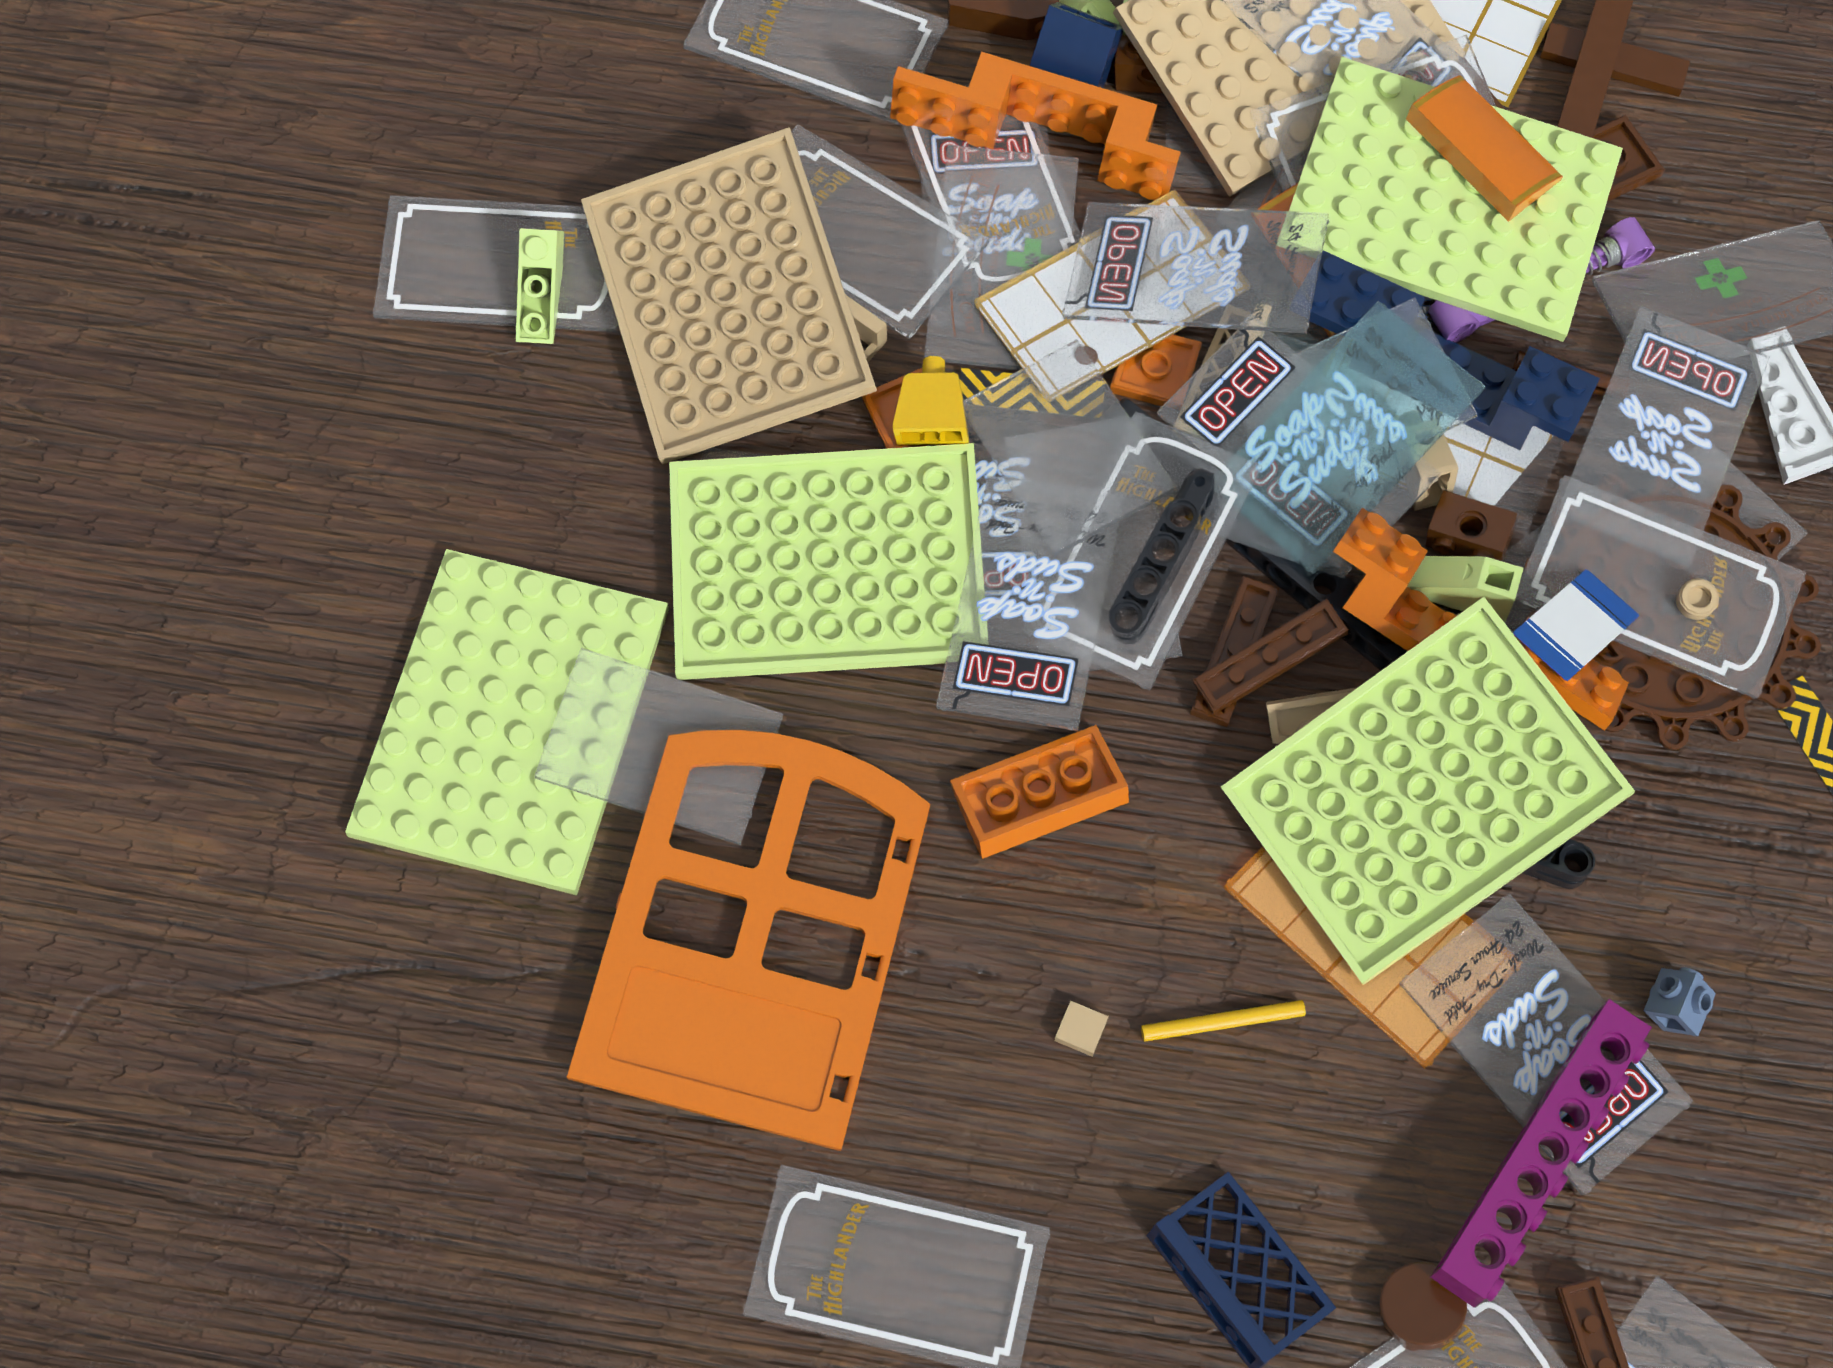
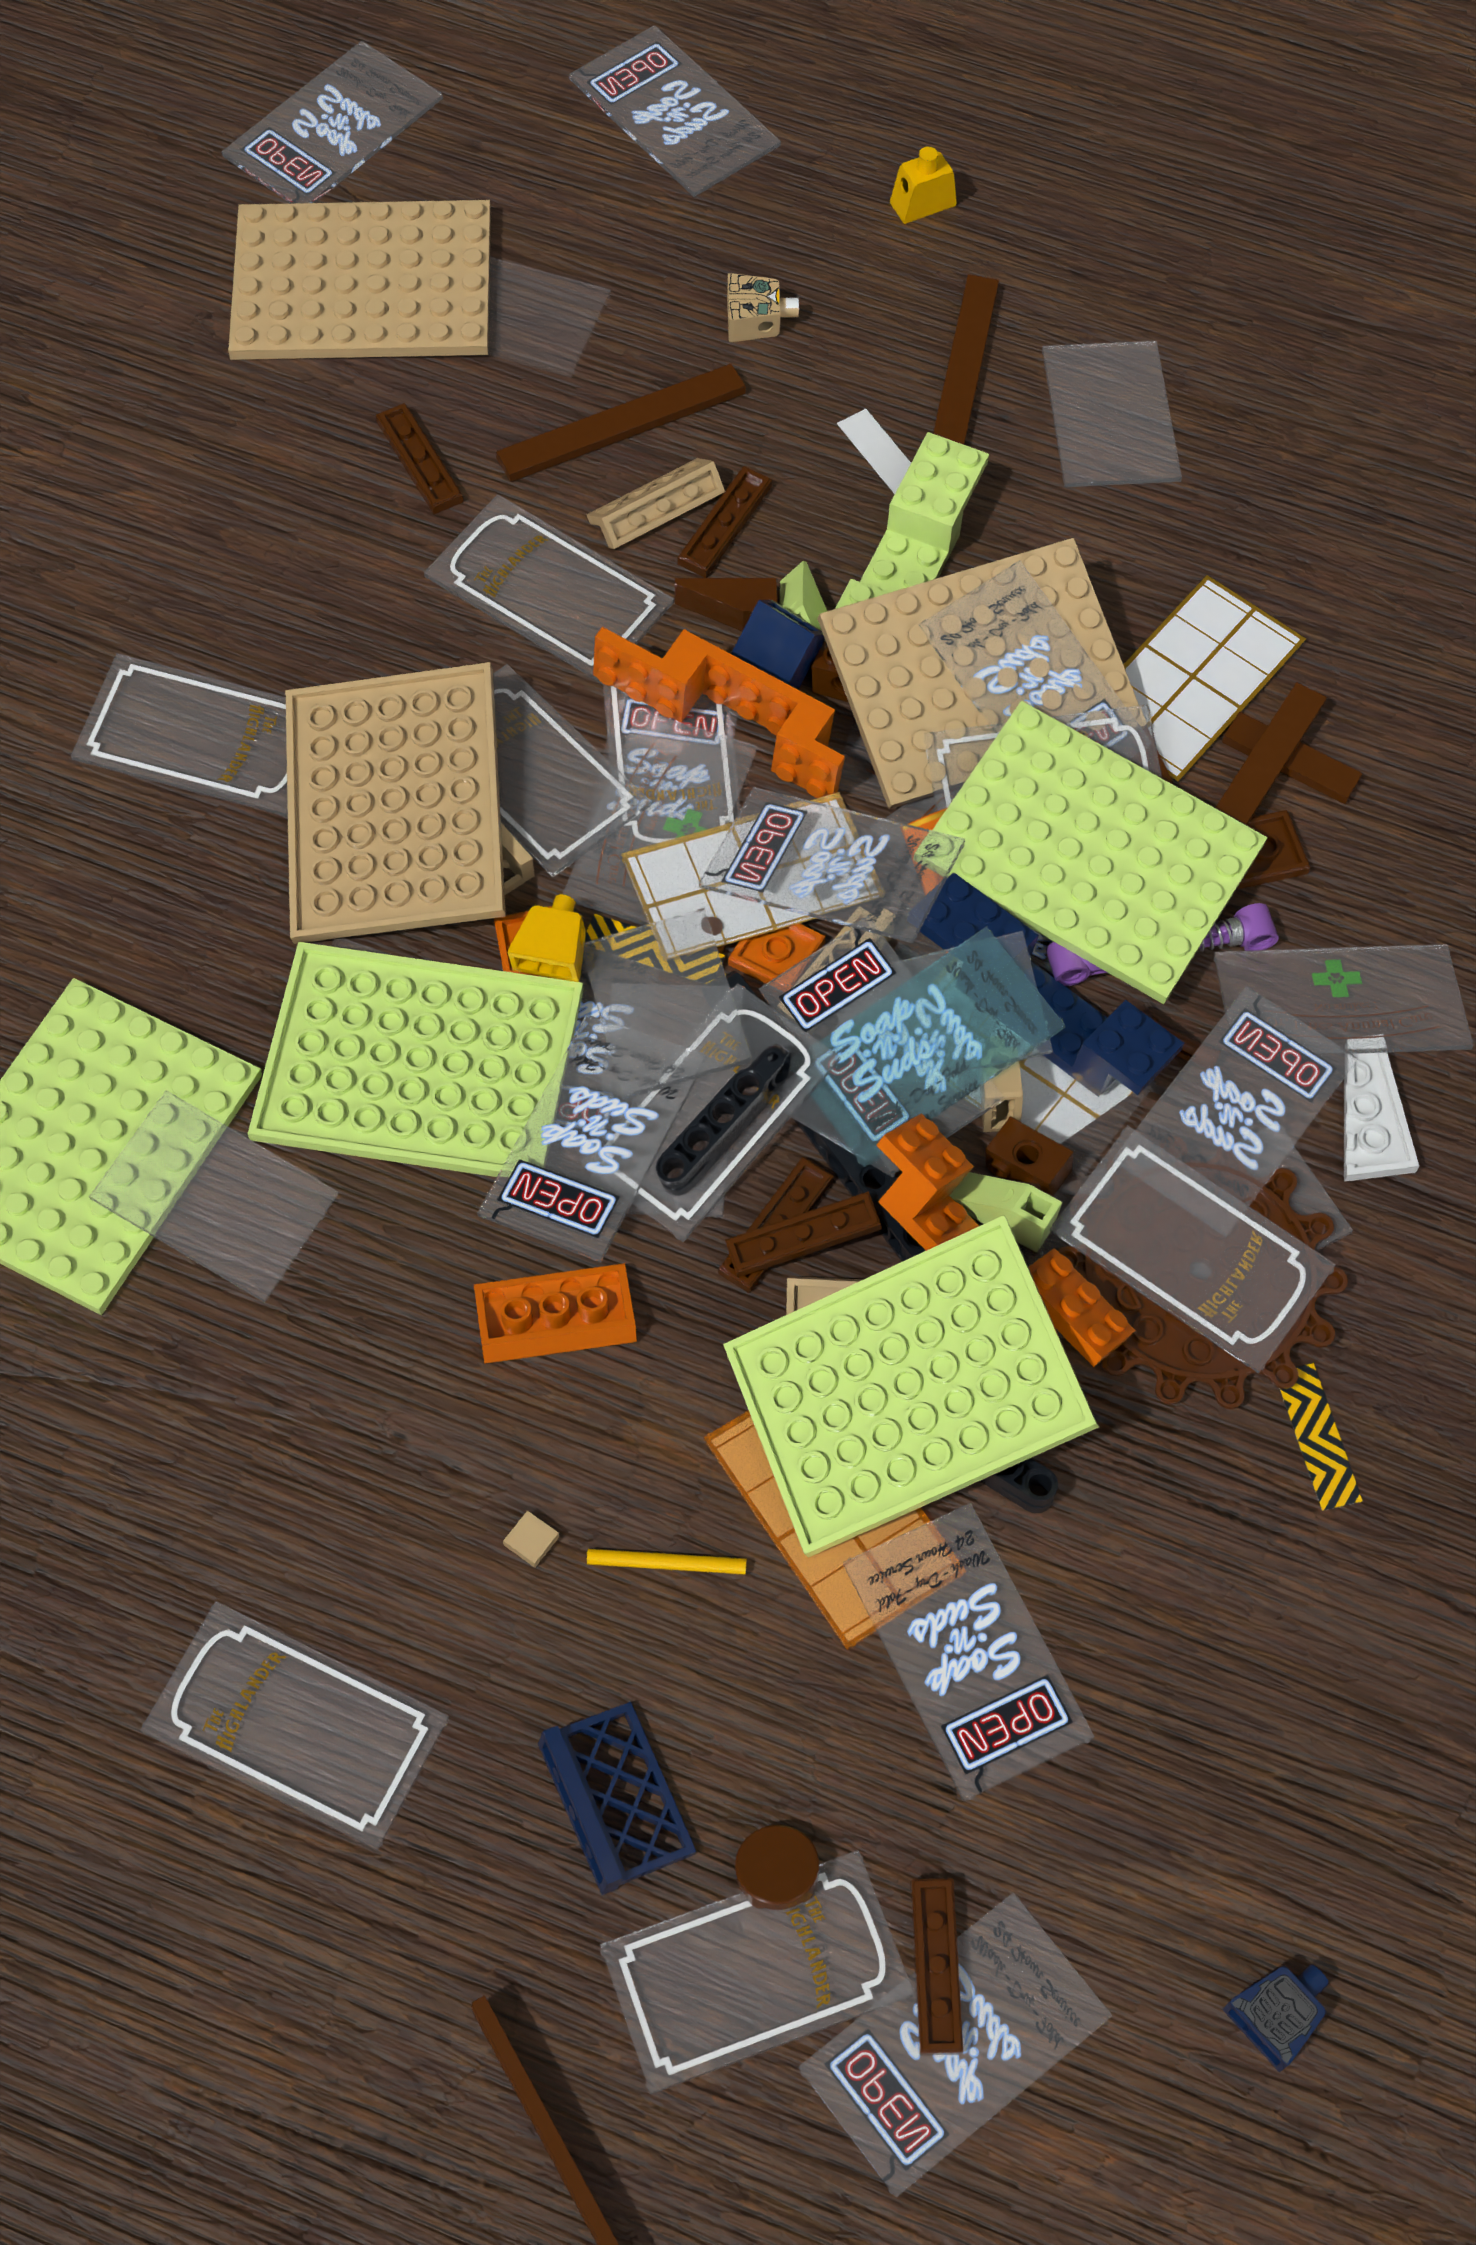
camera: 10 degrees right, 5 degrees down
(538, 284) = (226, 757): yellowish green slope -> none
(726, 1029) = (201, 1466): orange door -> none
(1459, 1267) = (1026, 1647): magenta brick -> none
(1482, 146) = (1130, 807): orange slope -> none
(1576, 625) = (1095, 1264): sticker -> none
(1680, 1001) = (1104, 1638): sand blue brick -> none
(1697, 599) = (1223, 1267): tan tile -> none

